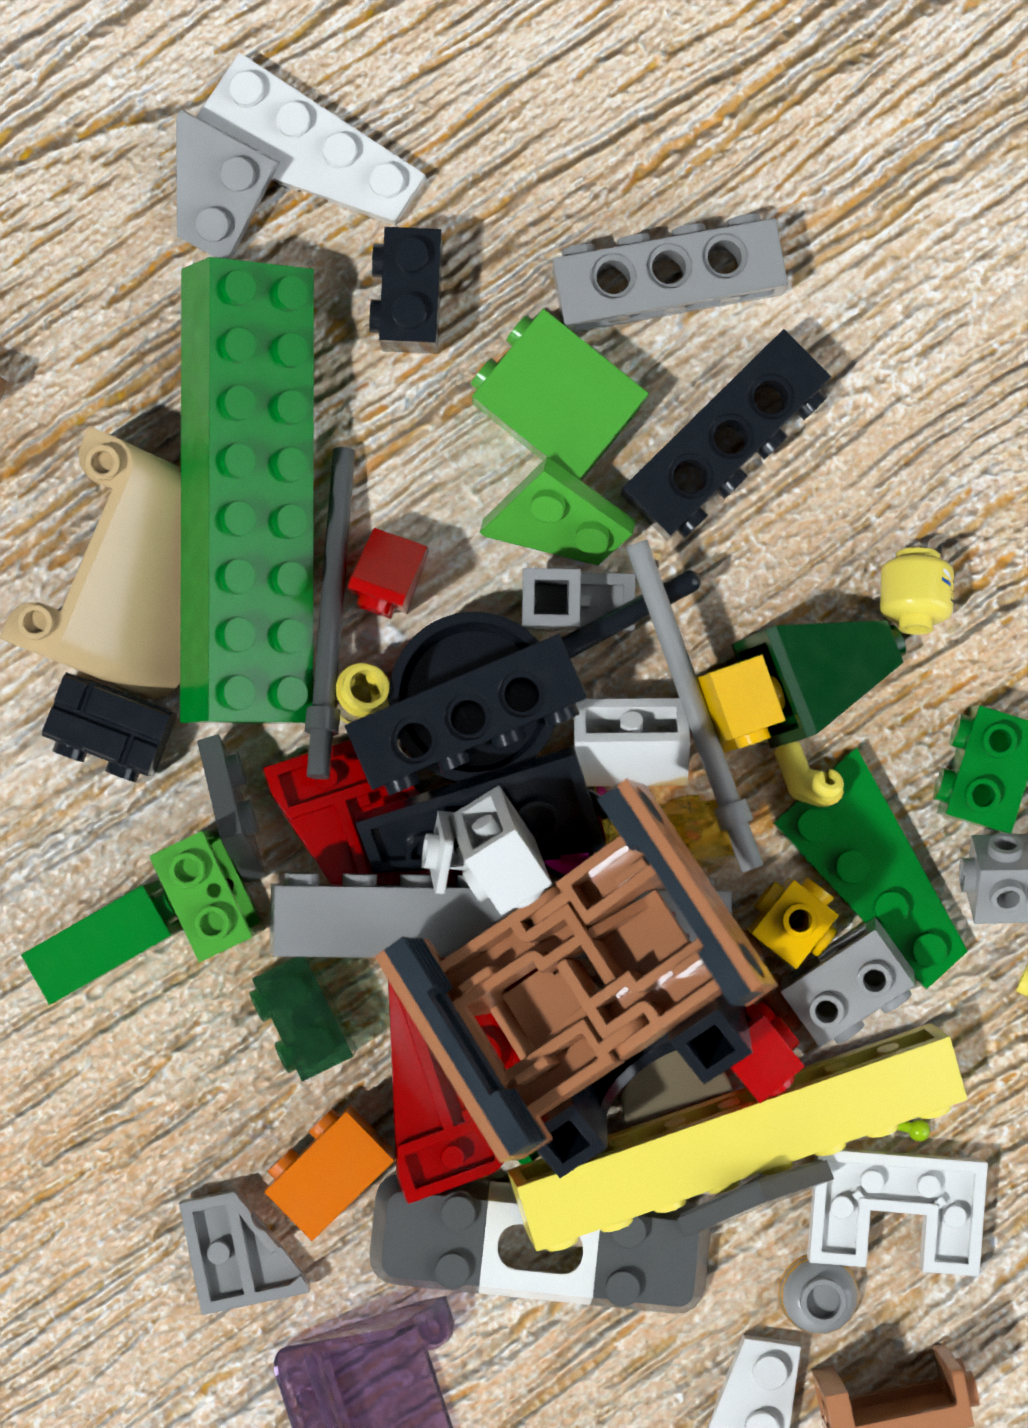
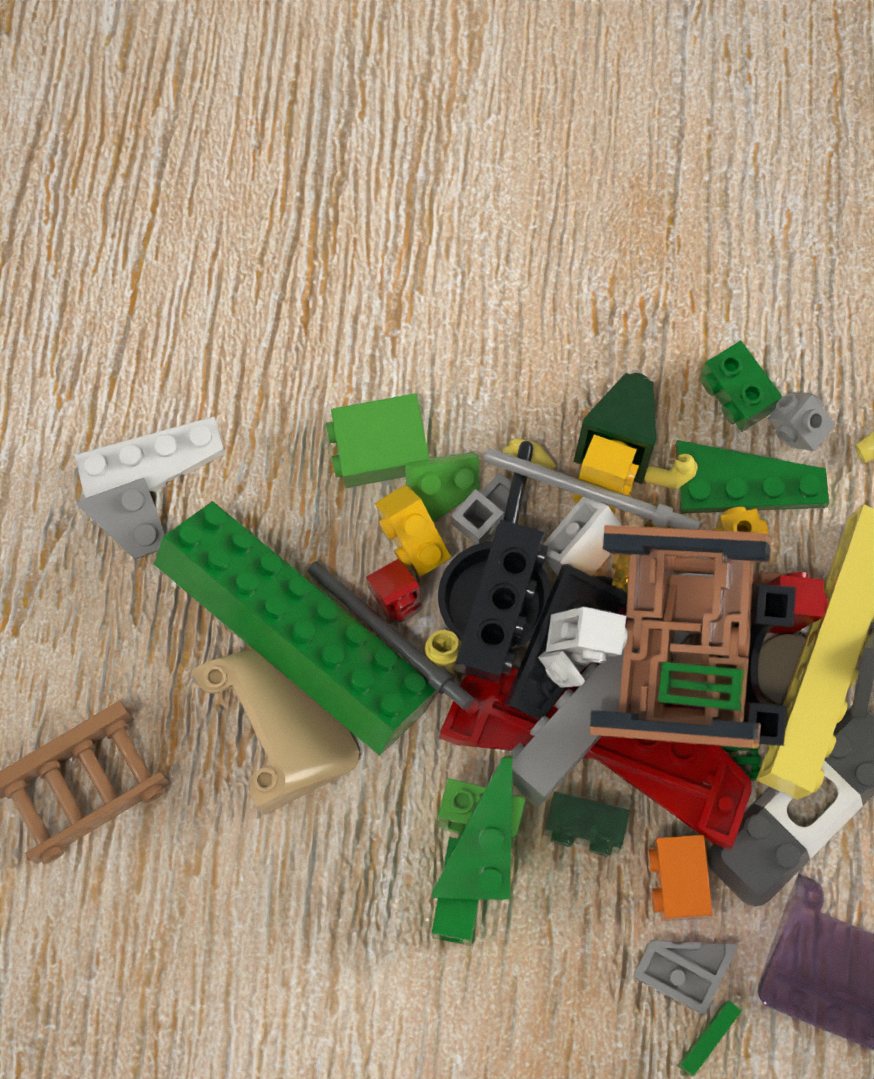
camera: 45 degrees left, 15 degrees down
(108, 726) = (349, 799): black brick -> none
(145, 944) = (482, 857): none -> green wing
(181, 1338) = (709, 1038): none -> green tile
(233, 815) = (427, 761): dark grey wing -> none
(410, 290) = (264, 466): black brick -> none
(472, 533) = (412, 530): none -> yellow brick
(563, 1081) = (735, 689): none -> green tile
(696, 605) = (539, 456): none -> light yellow arm
(750, 240) = (386, 293): light grey brick -> none
(779, 366) = (462, 325): black brick -> none
(849, 984) = (796, 534): light grey brick -> none
(917, 590) = (622, 349): light yellow head -> none

